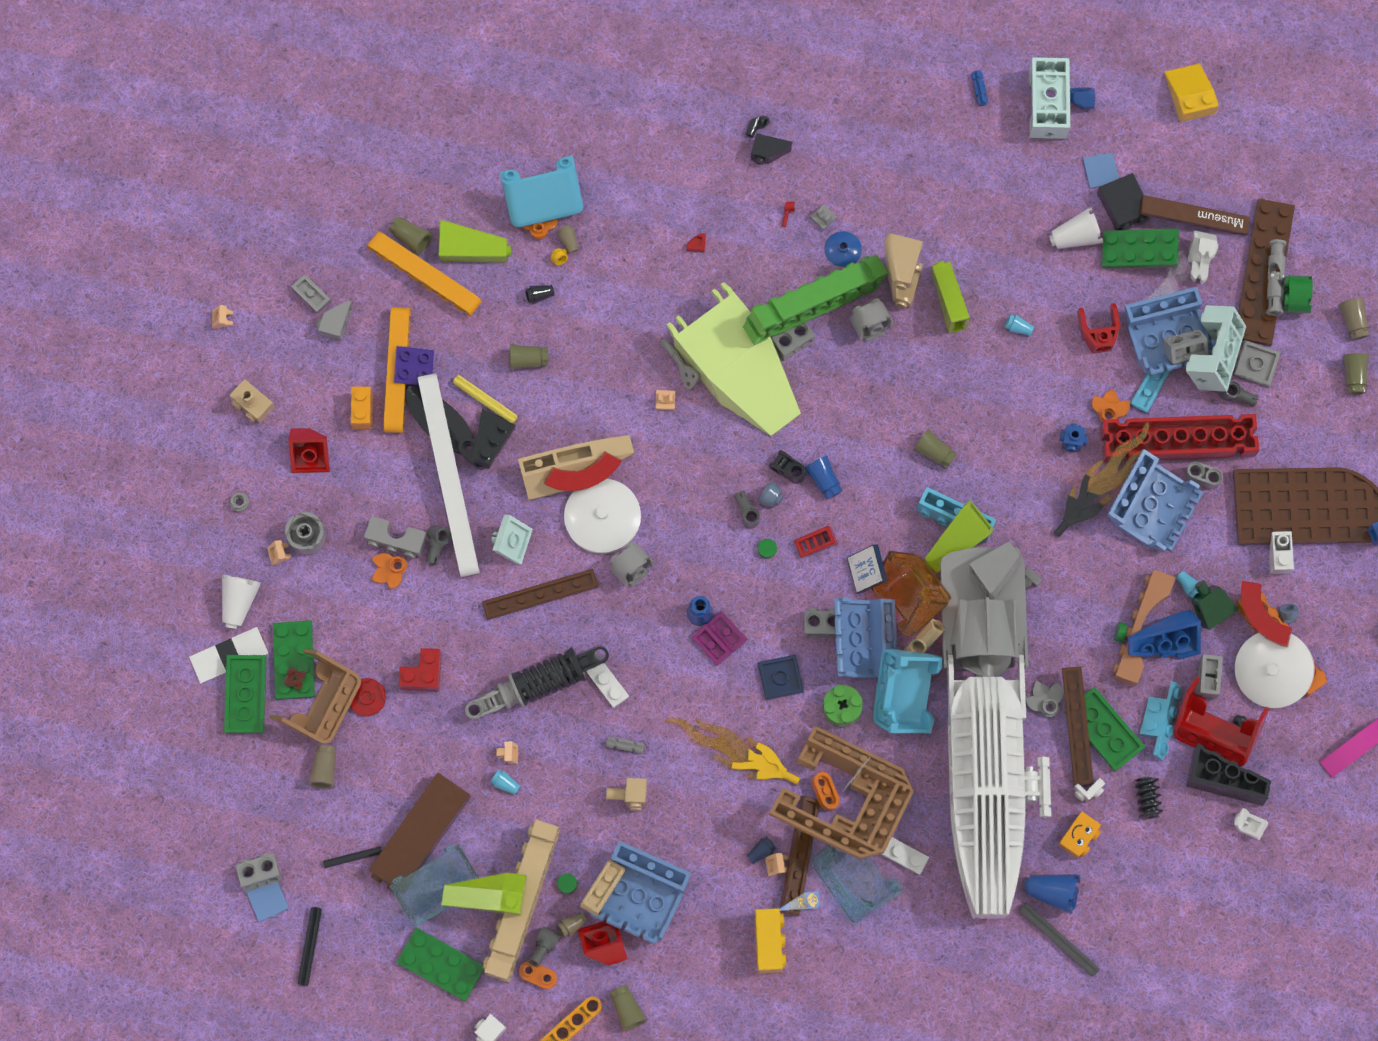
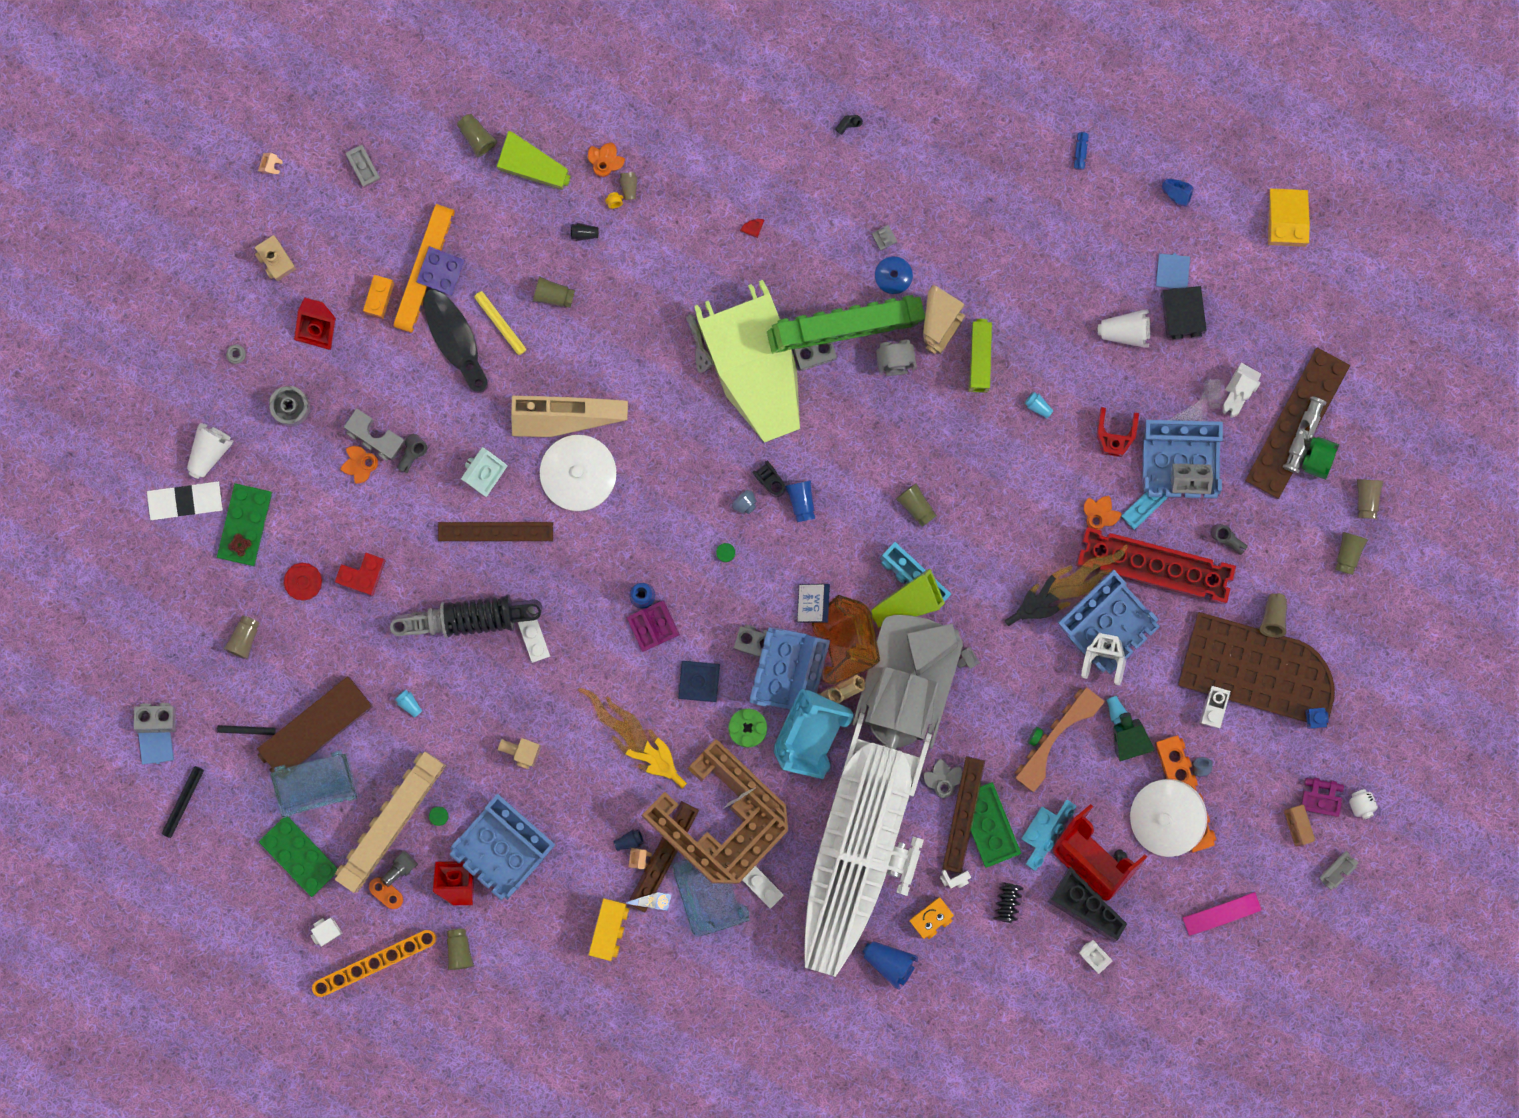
camera: 15 degrees right, 10 degrees up
(245, 694) = (189, 544): green plate -> none
(277, 553) = (257, 415): light nougat tile -> none
(330, 703) = (264, 580): medium nougat windscreen -> none
(335, 321) = (378, 201): light grey slope -> none
(424, 273) = (478, 178): light orange beam -> none
(448, 475) = (442, 389): white beam -> none
(491, 438) = (493, 365): black wing -> none
(492, 893) = (362, 809): lime wedge -> none
(509, 753) = (421, 676): light nougat tile -> none
(543, 195) = (615, 137): medium azure windscreen -> none
(571, 924) = (430, 856): dark tan cone -> none
(585, 478) = (570, 433): red tile -> none
(603, 887) = (469, 833): tan tile -> none
(626, 745) = (532, 701): light grey axle -> none
(631, 564) = (589, 531): light grey brick -> none
(665, 400) = (673, 376): light nougat tile -> none
(747, 509) = (717, 508): dark grey pin -> none
(768, 149) = (852, 152): black slope -> none
(788, 207) = (853, 217): red hand -> none
(813, 535) = (790, 560): red slope -> none
(826, 791) = (708, 803): orange plate -> none
(1050, 115) = (1141, 203): light aqua plate -> none
(1059, 939) = (880, 1009): dark grey axle -> none
(1070, 443) = (1048, 539): blue brick -> none
(1140, 248) = (1183, 364): green plate -> none
(1161, 525) = (1099, 648): none -> white piece
(1173, 636) = (1082, 756): blue wedge -> none
(1194, 215) = (1247, 346): reddish brown tile -> none
(1204, 471) = (1168, 606): light grey beam -> none
(1210, 676) = (1104, 806): light grey brick -> none
(1228, 329) = (1238, 477): light aqua plate -> none
(1256, 363) = (1257, 513): light grey tile -> none
(1259, 618) = (1169, 764): red tile -> none
(1307, 450) = (1274, 616): none -> dark tan plant

